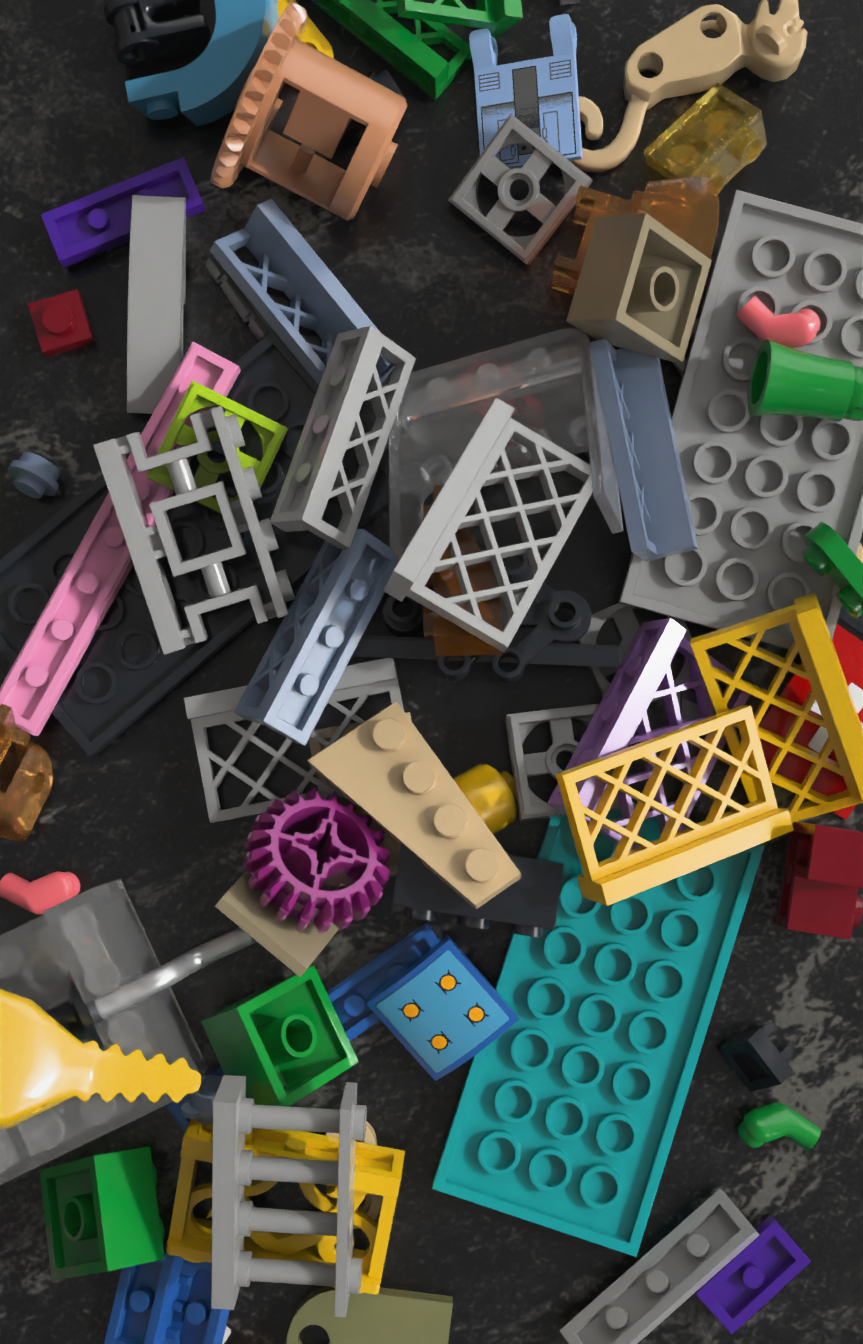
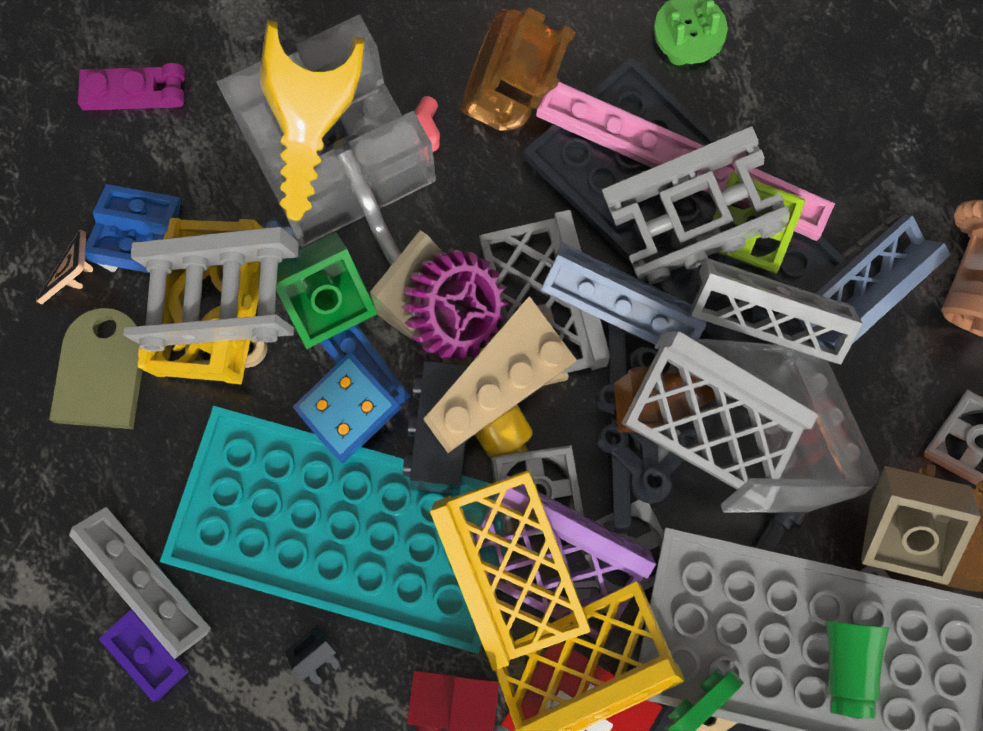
camera: 85 degrees right, 10 degrees down
(34, 475) = (723, 104): sand blue plate -> none
(61, 323) = (837, 119): dark red plate -> none
(102, 1213) = (199, 176): green slope -> none
(104, 217) = (925, 155): dark purple plate -> none
(155, 298) = (867, 178): light grey slope -> none
(644, 452) = (786, 536): sand blue fence -> none
(776, 1121) = (261, 671): green arm -> none
(786, 329) = (898, 648): coral arm -> none

